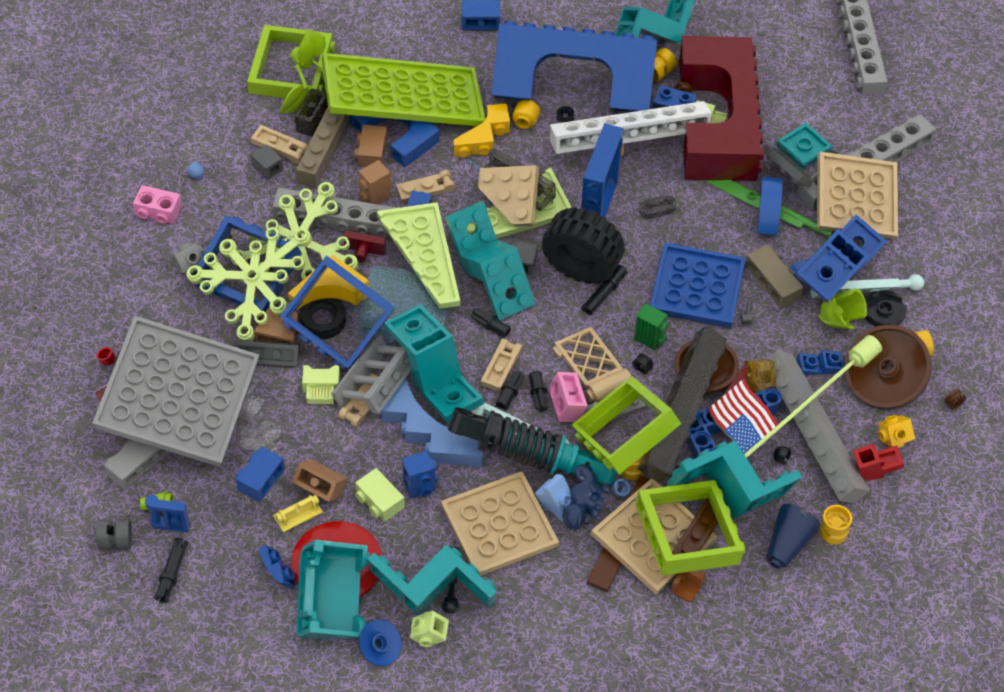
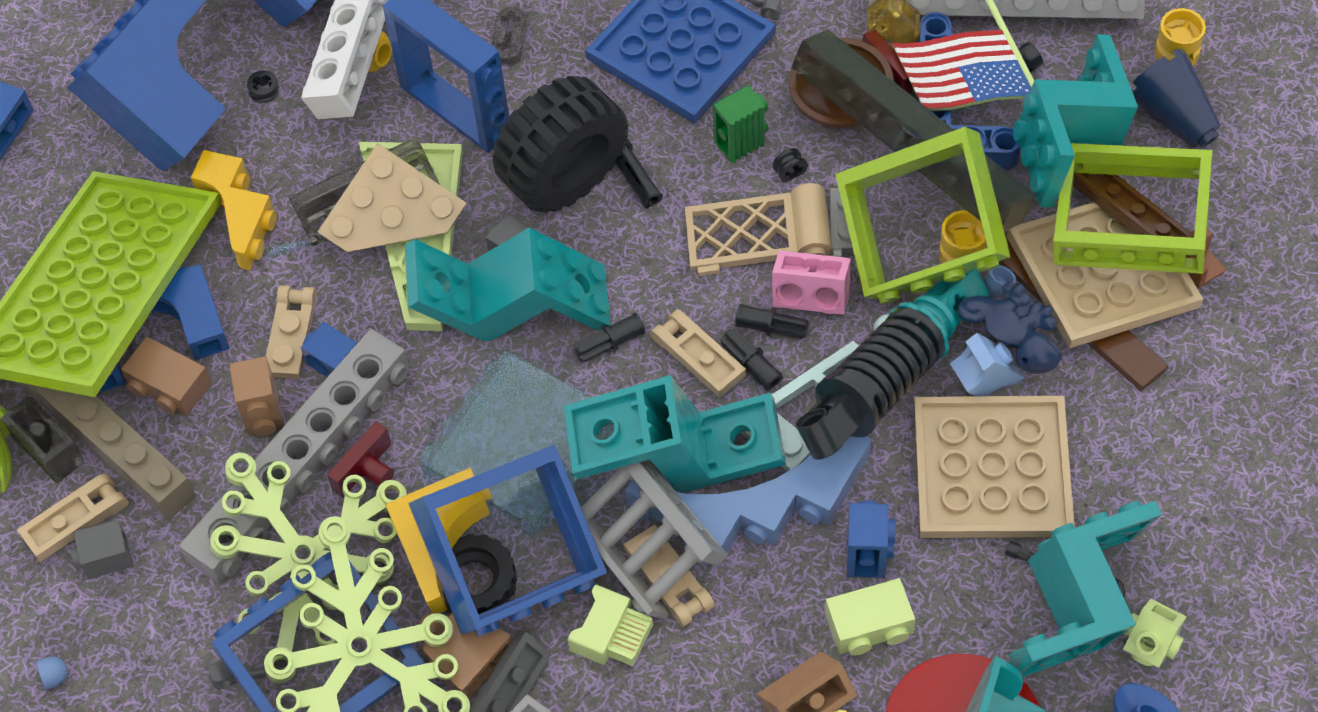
camera: 60 degrees left, 5 degrees up
(423, 243) = (418, 366): yellowish green wing -> none
(526, 114) = (235, 134): yellow head -> none

